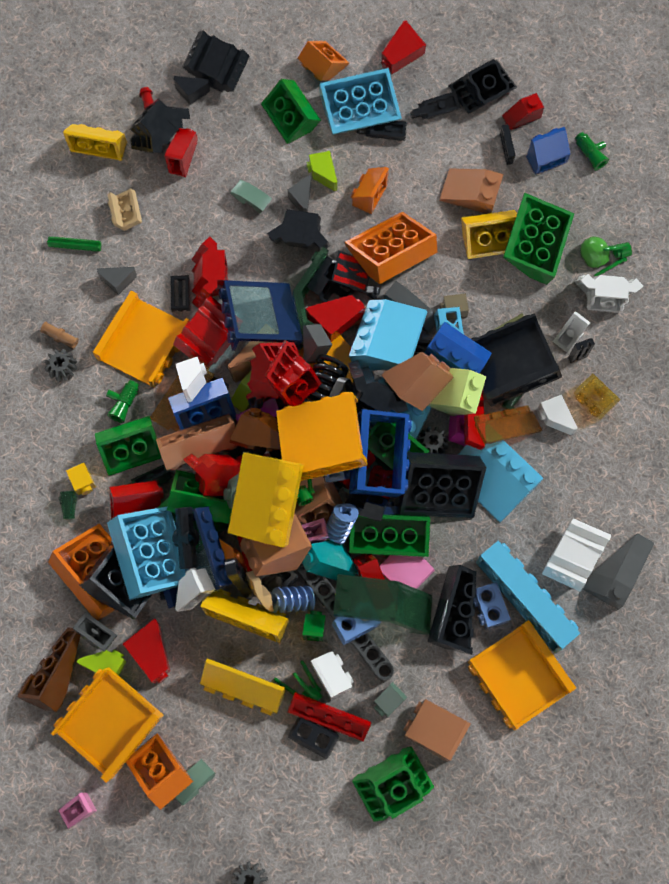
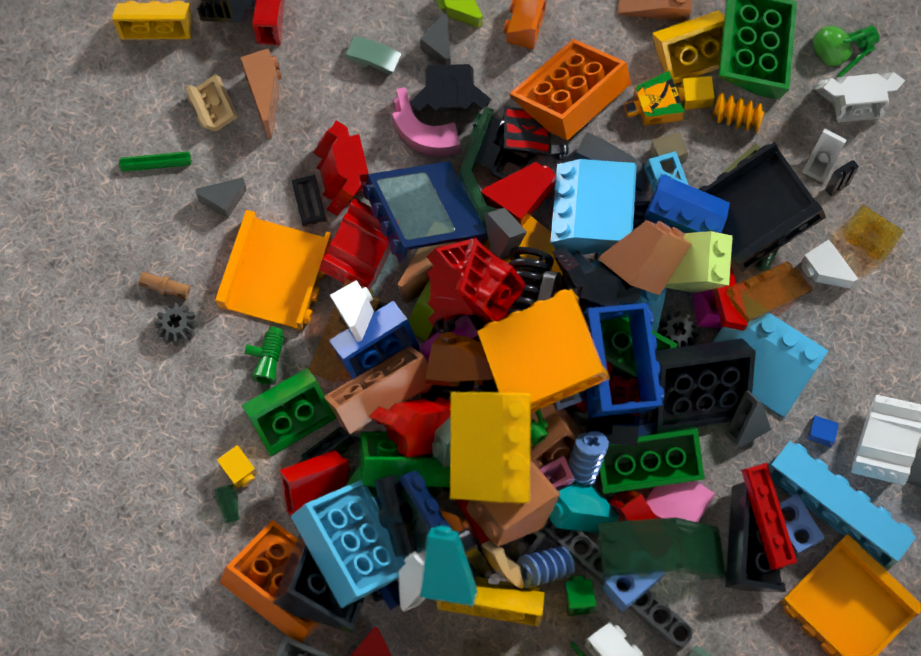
camera: 10 degrees left, 0 degrees up
(165, 203) = (262, 77): none -> nougat slope
(212, 586) = (447, 569): none -> teal slope
(278, 265) = (423, 138): none -> bright pink arch
(453, 268) = (656, 101): none -> torso
(470, 594) = (769, 516): none -> red tile
(471, 519) = (748, 421): none -> dark grey slope
(485, 267) = (696, 92): none -> yellow brick
(513, 288) = (738, 112): none -> light orange piece
(527, 538) = (823, 431): none -> blue slope

